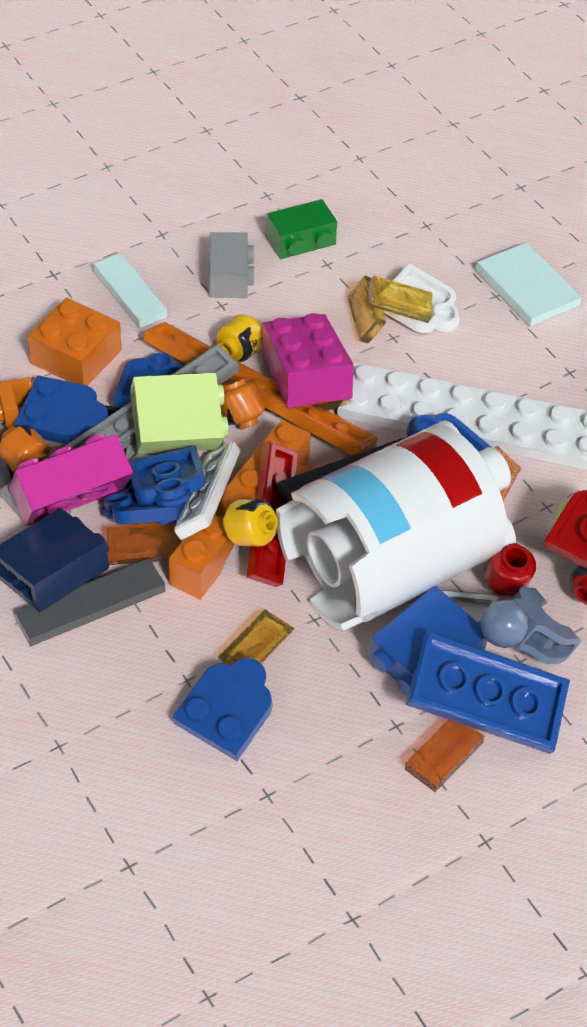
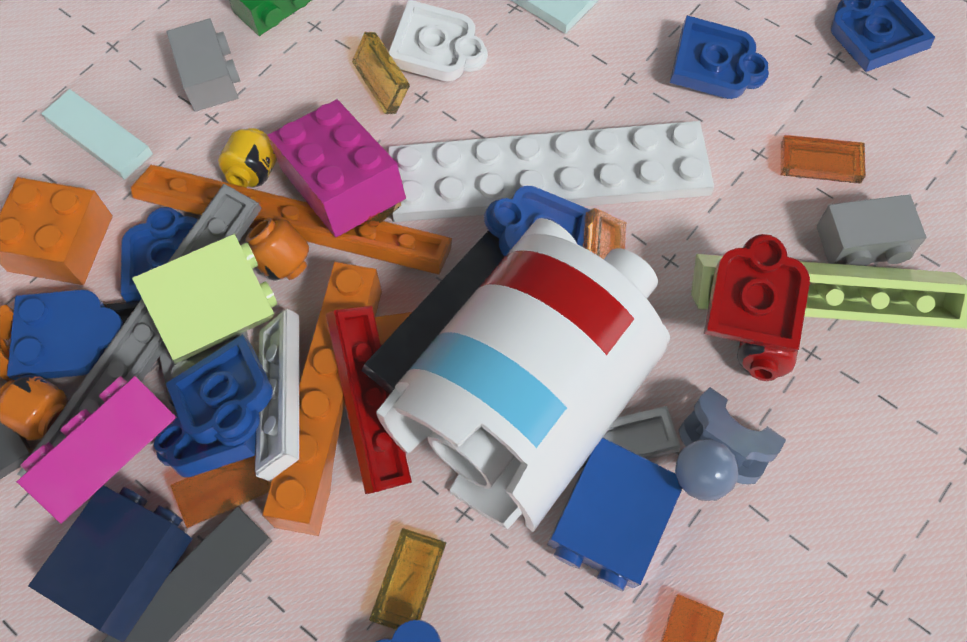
camera: 15 degrees left, 15 degrees up
(250, 522) = (348, 434): yellow head -> none
(400, 299) = (416, 50): clear yellow tile -> none
(488, 692) = (710, 561): blue tile -> none
(510, 569) = (675, 374): red head -> none

